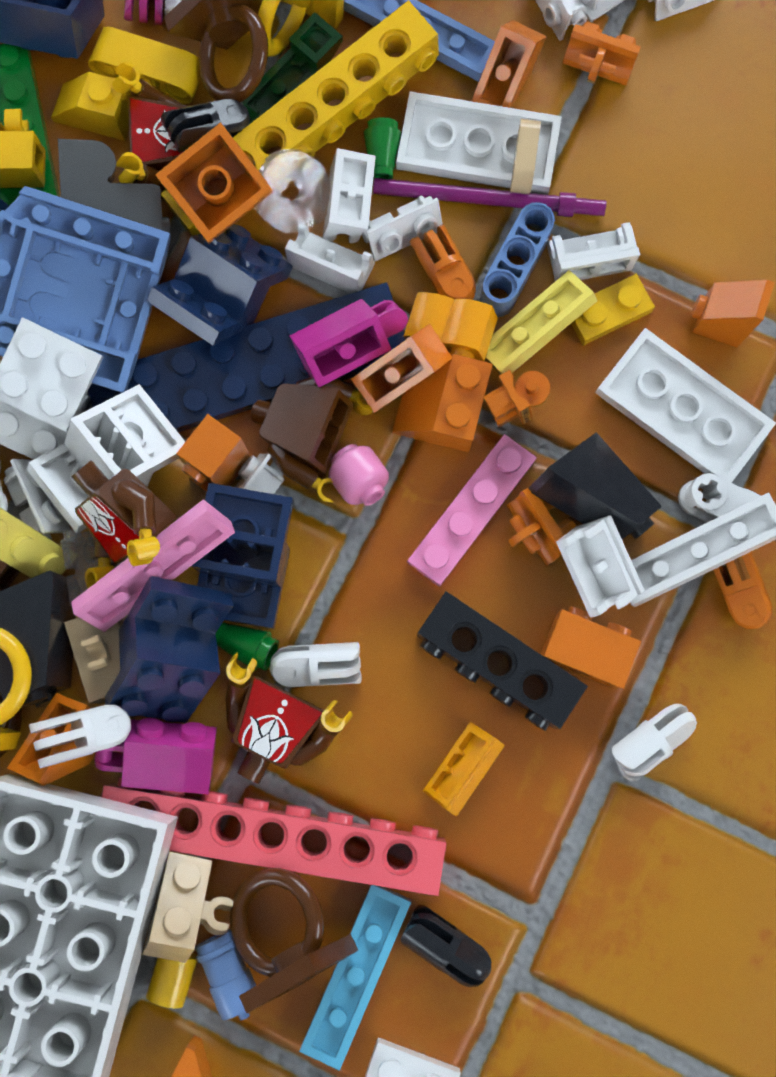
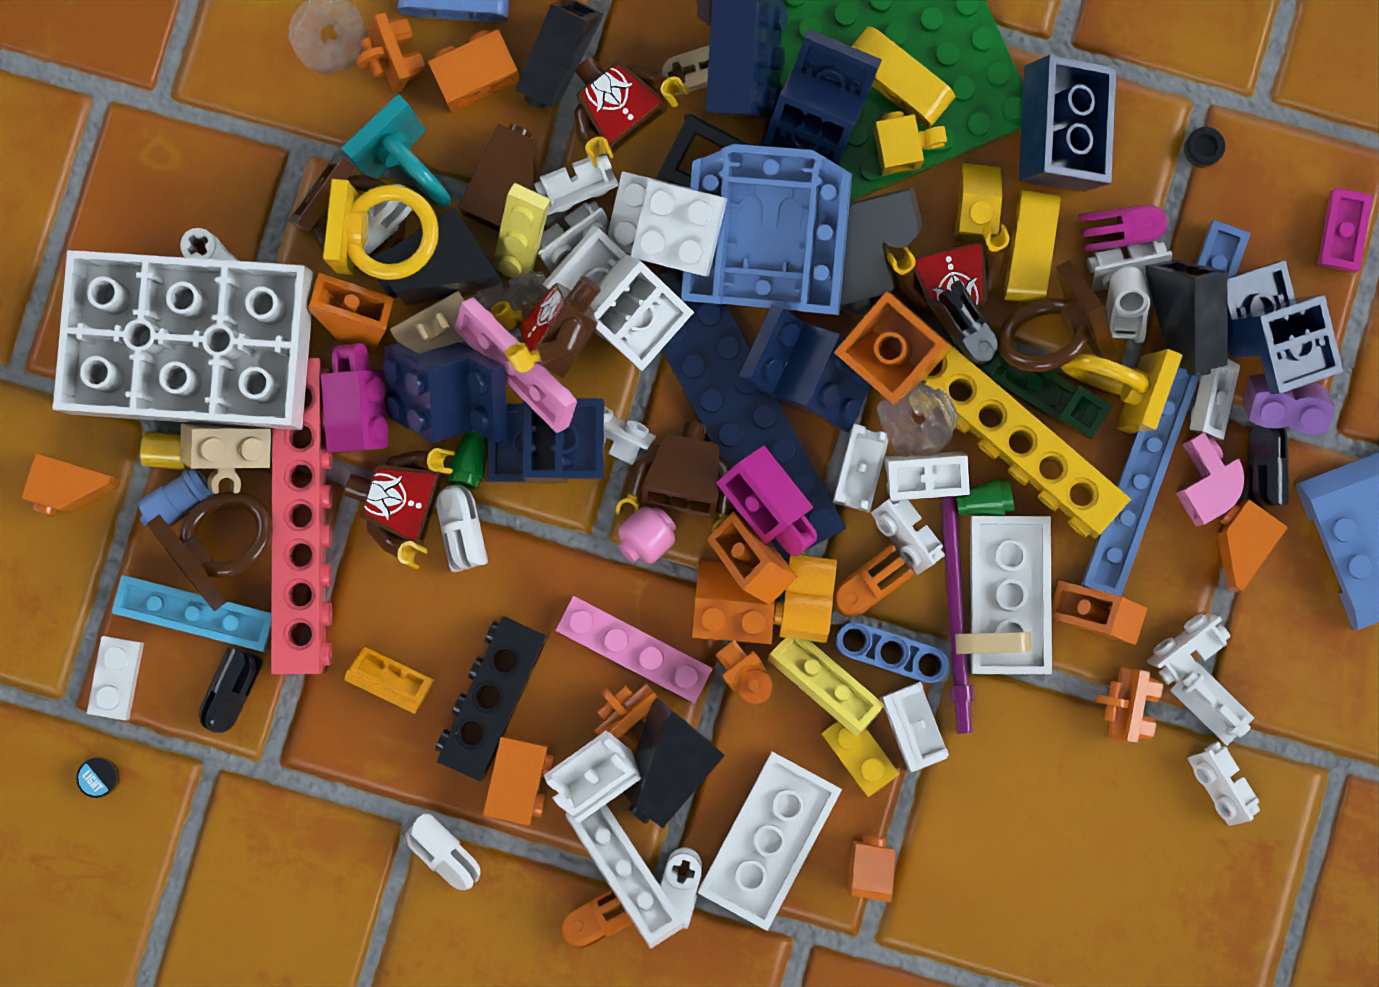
camera: 85 degrees right, 5 degrees up
(90, 730) = (362, 339): white arm -> none
(212, 454) = (635, 395): orange brick -> none

